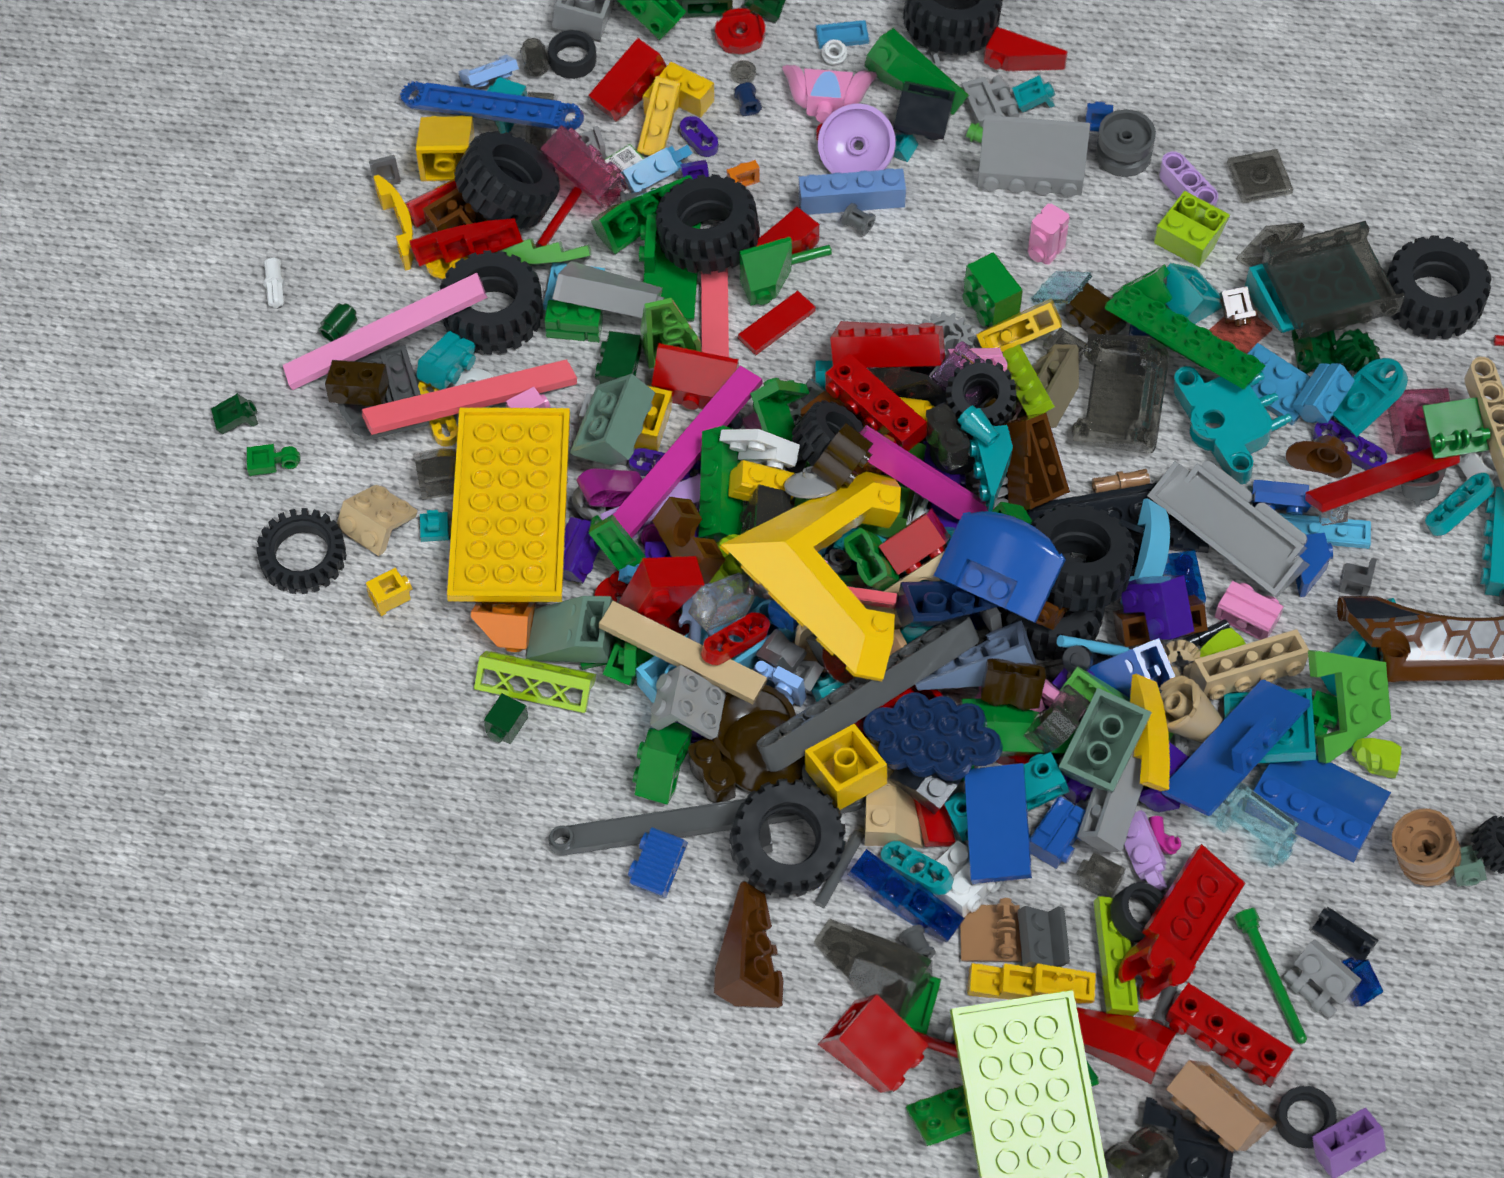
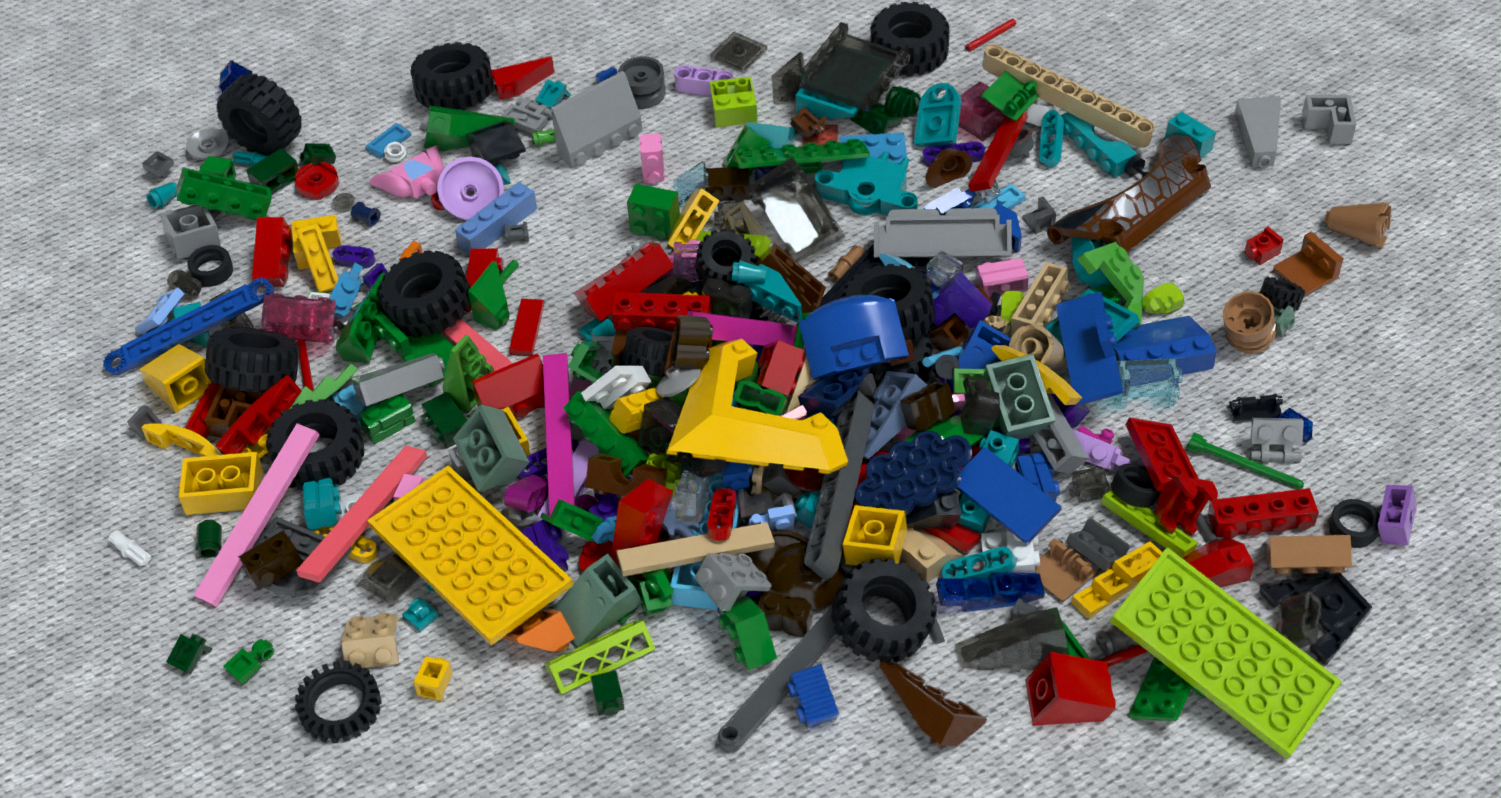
camera: 40 degrees left, 10 degrees down
(386, 275) = (219, 482): none -> yellow brick
(1193, 562) = (943, 268): none -> clear brick
(1323, 393) = (912, 132): dark azure brick -> none

